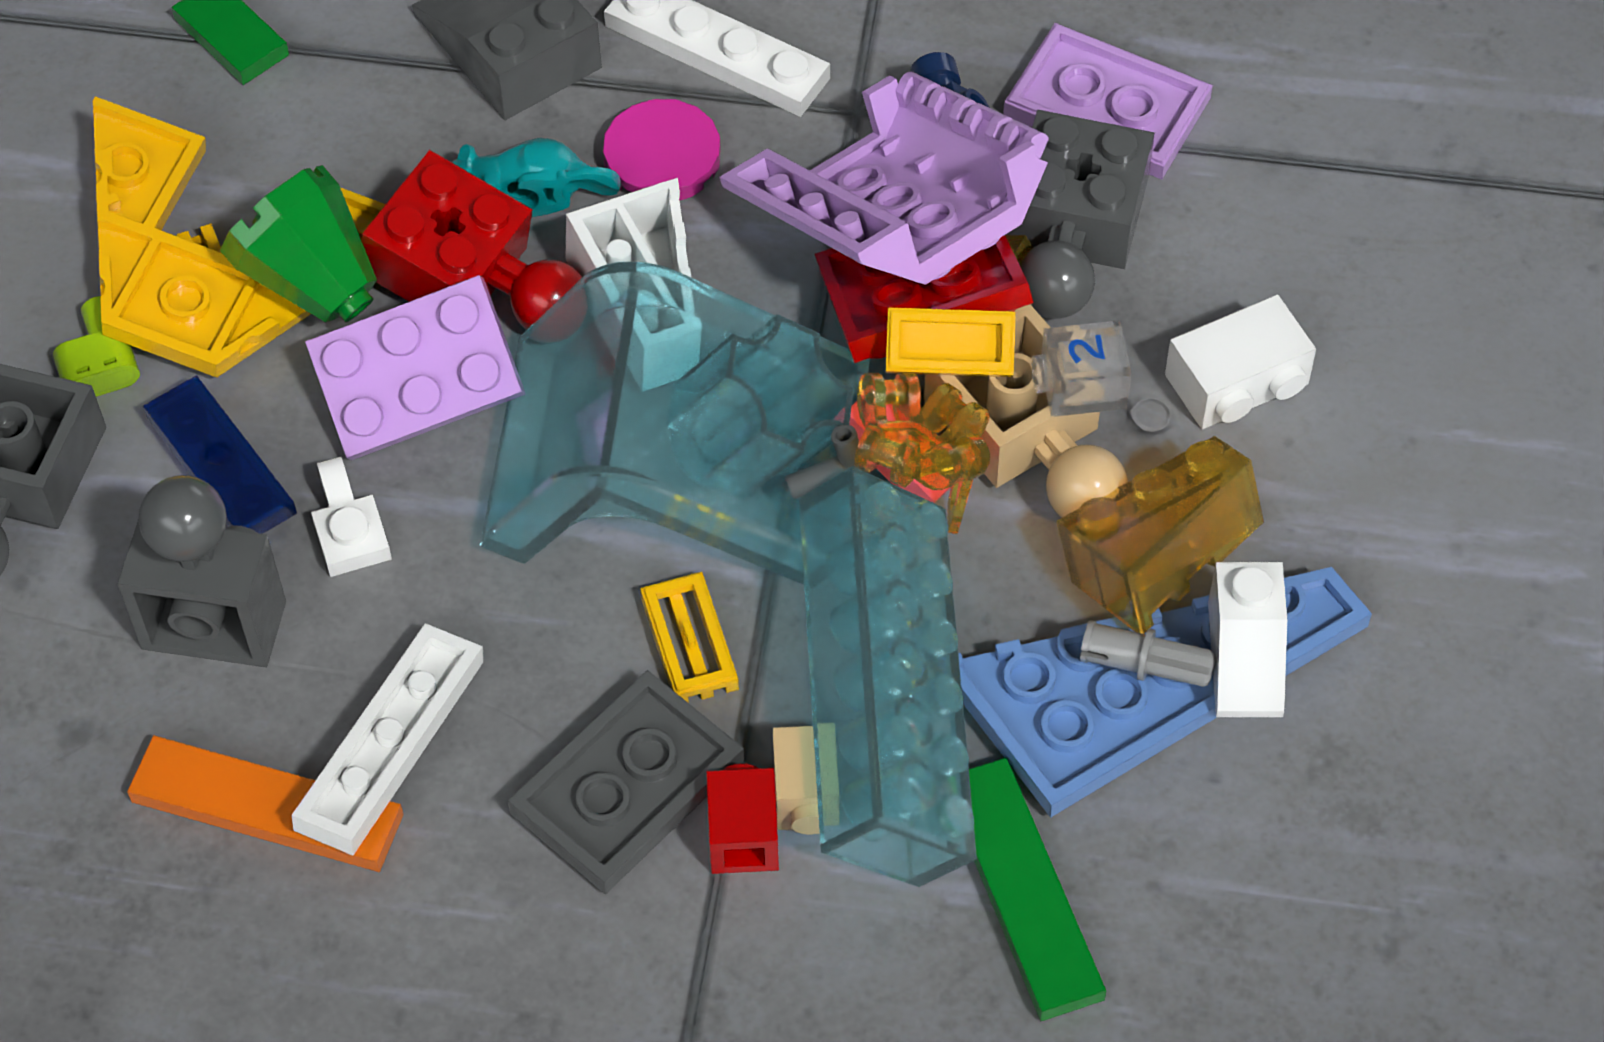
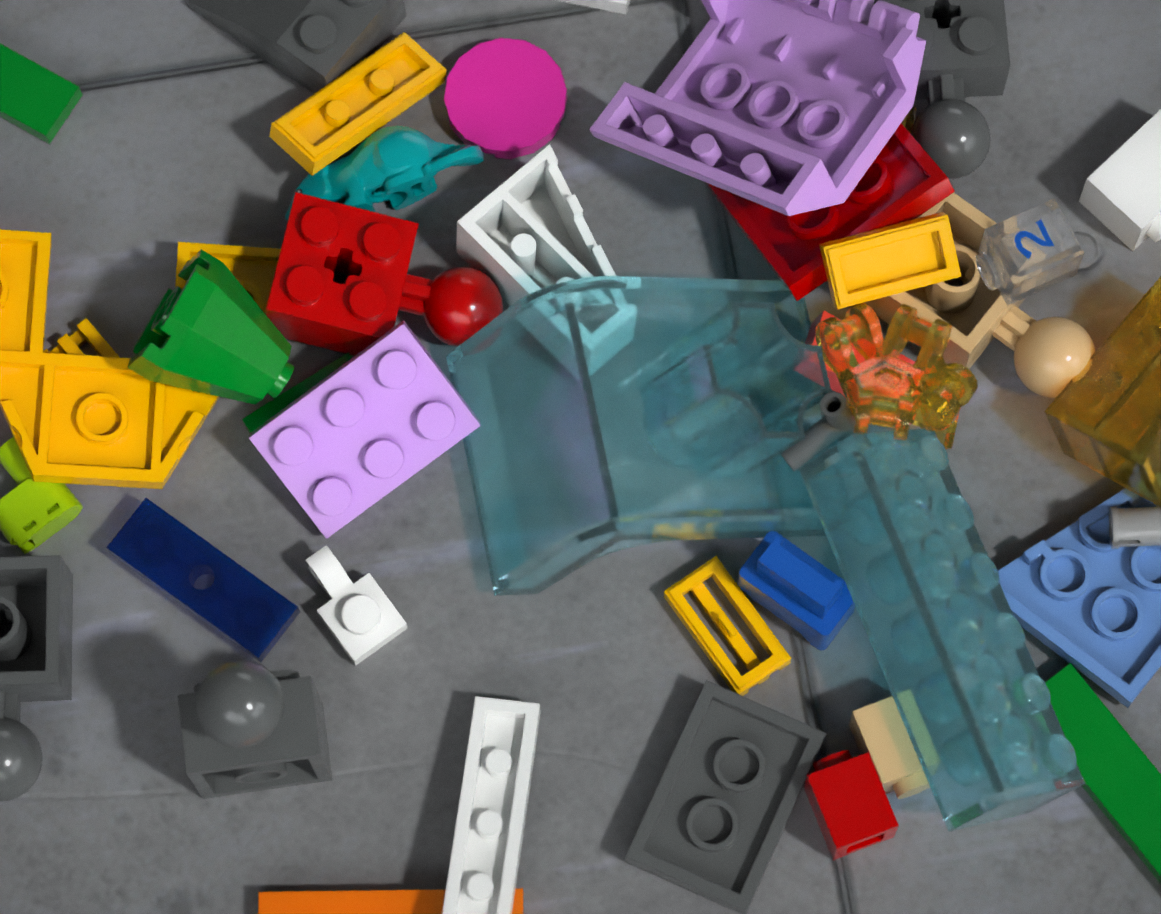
camera: 15 degrees left, 15 degrees up
(523, 113) = (357, 103): none -> yellow tile
(762, 615) = (797, 589): none -> blue piece

